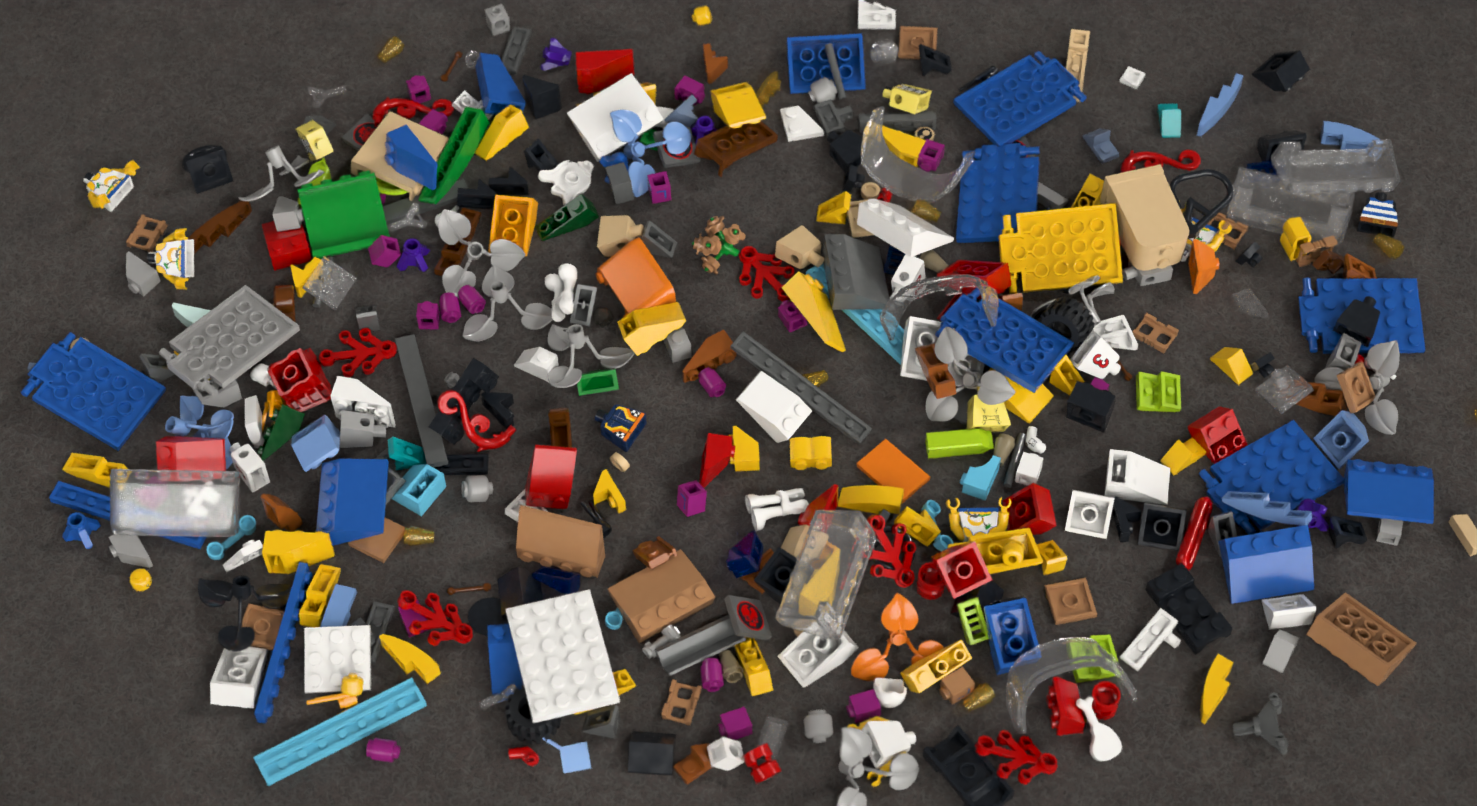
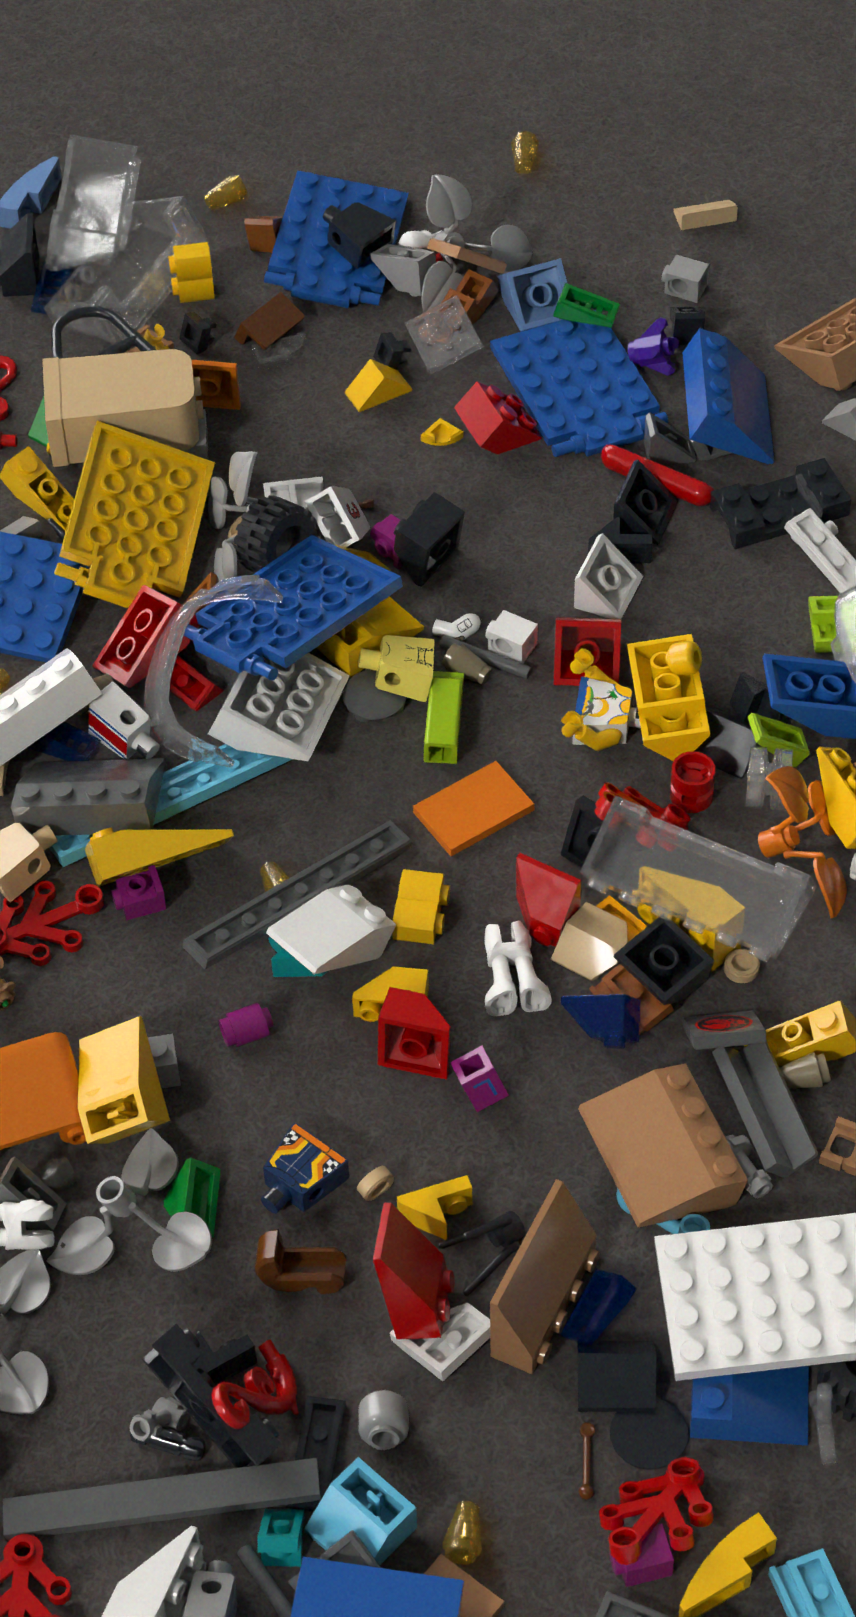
camera: 80 degrees left, 5 degrees down
(537, 362) = (130, 1289): white slope -> none
(654, 553) = (576, 1146): dark orange plate -> none
(711, 354) = (184, 1015): dark orange slope -> none
(711, 674) = (819, 1098): magenta brick -> none
(815, 656) = (806, 963): white slope -> none
(872, 498) = (525, 832): yellow slope -> none
(918, 525) = (588, 778): yellow slope -> none
(936, 372) = (327, 699): dark orange slope -> none
(940, 620) = (758, 770): none -> clear wheel
(941, 541) = (622, 763): medium azure bar -> none
(961, 568) = (702, 720): red slope -> none
(979, 480) = (519, 696): medium azure arch -> none
(993, 385) = (313, 659): light grey plant -> none
(1053, 557) = (676, 624): yellow slope -> none
(1070, 601) = (743, 632): medium nougat tile -> none
(1136, 478) = (553, 523): white slope -> none
(1158, 328) = (293, 455): medium nougat piece -> none
(1158, 392) = (404, 474): lime slope -> none
(1182, 455) = (523, 466): yellow slope -> none
(1201, 406) = (442, 432): none -> yellow tile
(1260, 506) = (640, 386): medium blue slope -> none
(1268, 292) = (270, 322): none -> reddish brown panel
(1288, 611) = (798, 400): white slope -> none
(1314, 249) = (217, 259): medium nougat piece -> none
(1329, 260) = (238, 253): reddish brown slope -> none
(1334, 452) = (576, 306): none -> green slope
(1379, 216) = (175, 182): torso -> none
(1389, 491) = (640, 259): blue slope -> none

